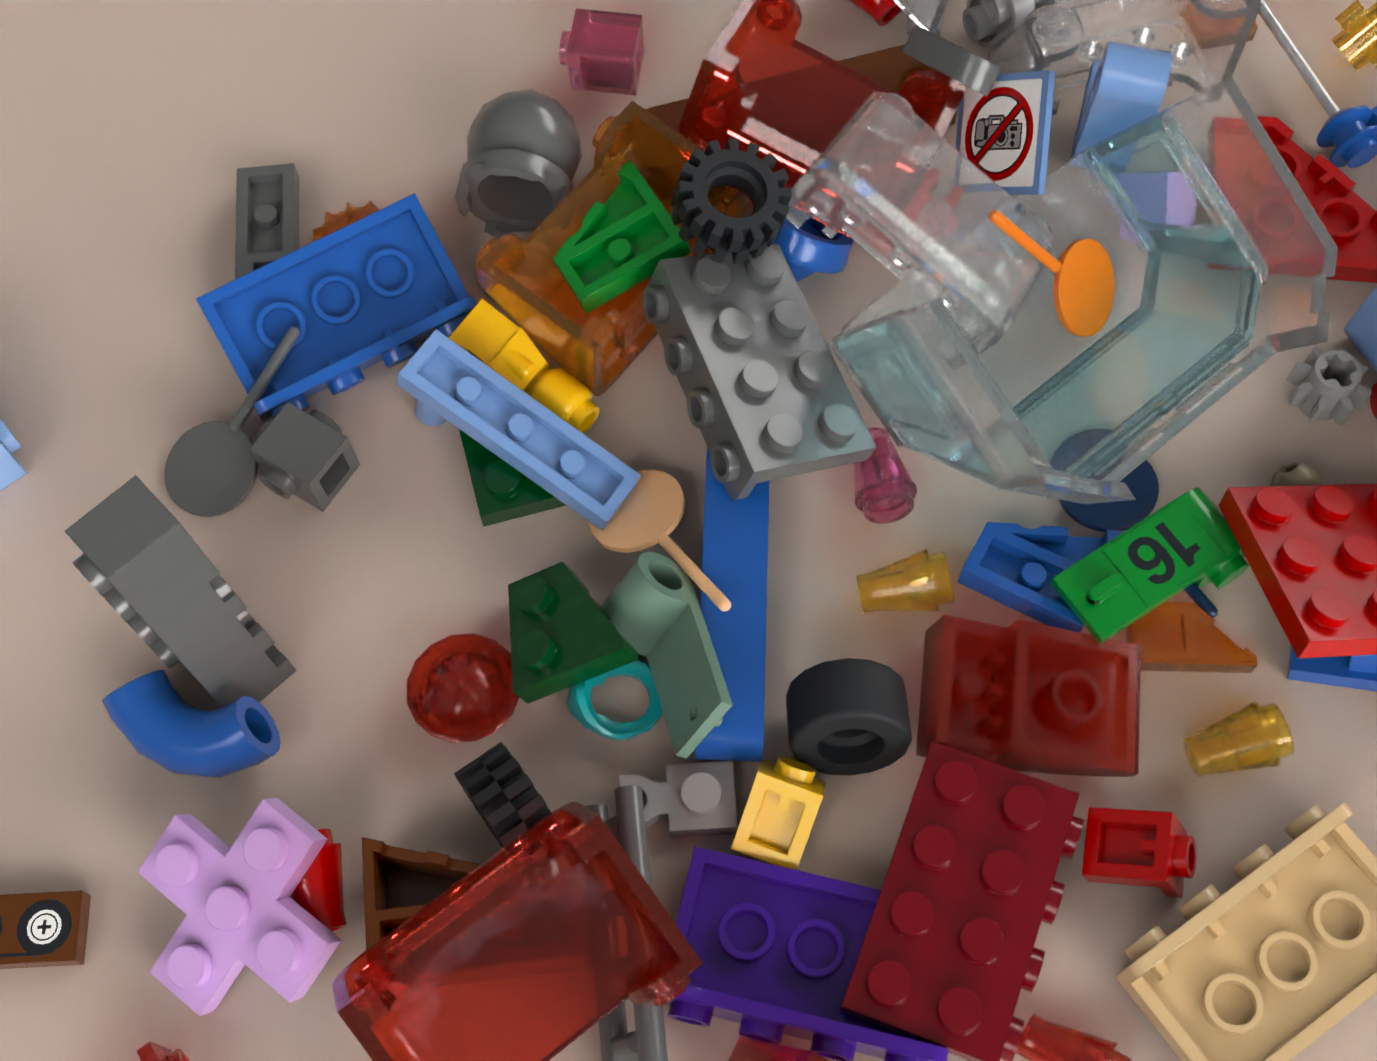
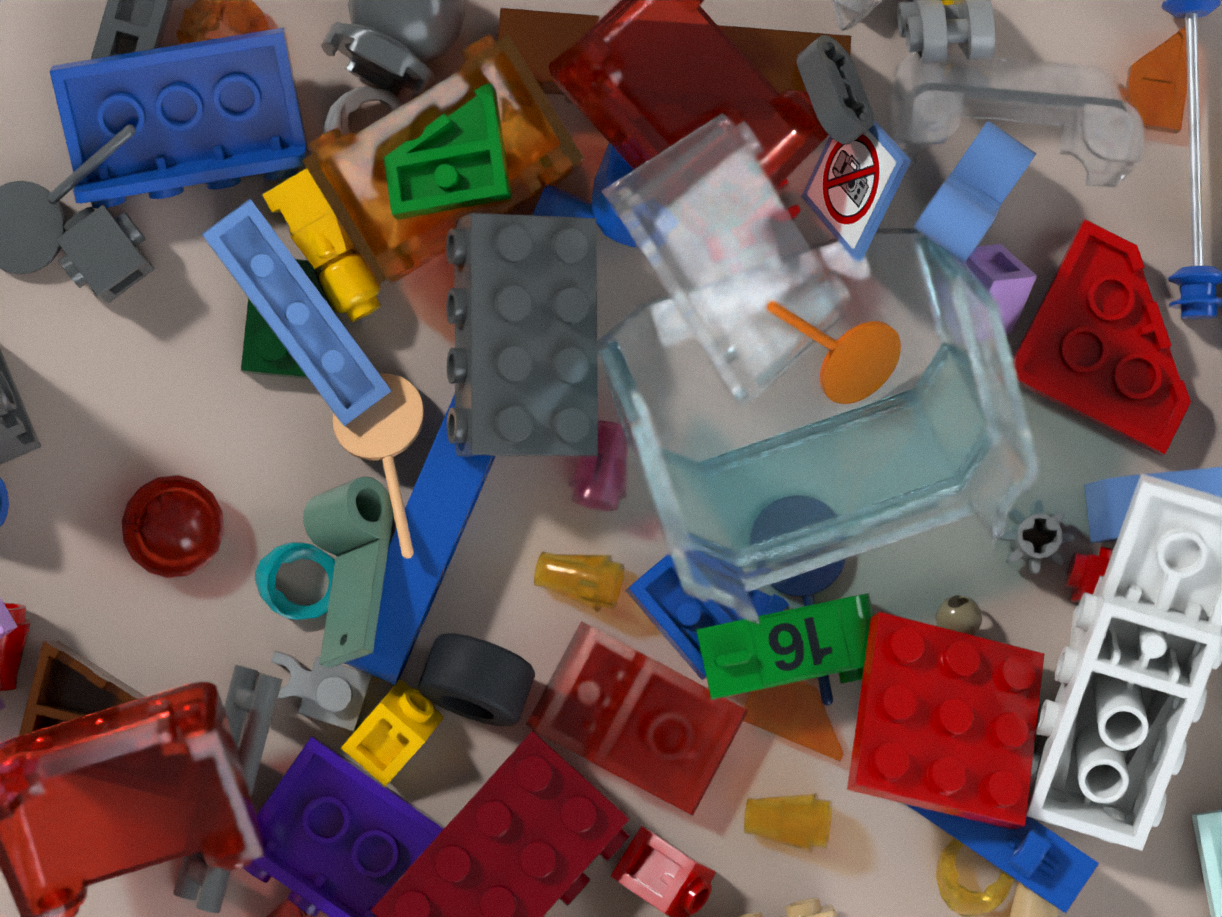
camera: 20 degrees right, 20 degrees up
(502, 794) = (170, 645): black tyre -> none
(560, 634) = (267, 512): dark green wing -> none
(736, 170) = (589, 186): black tyre -> none

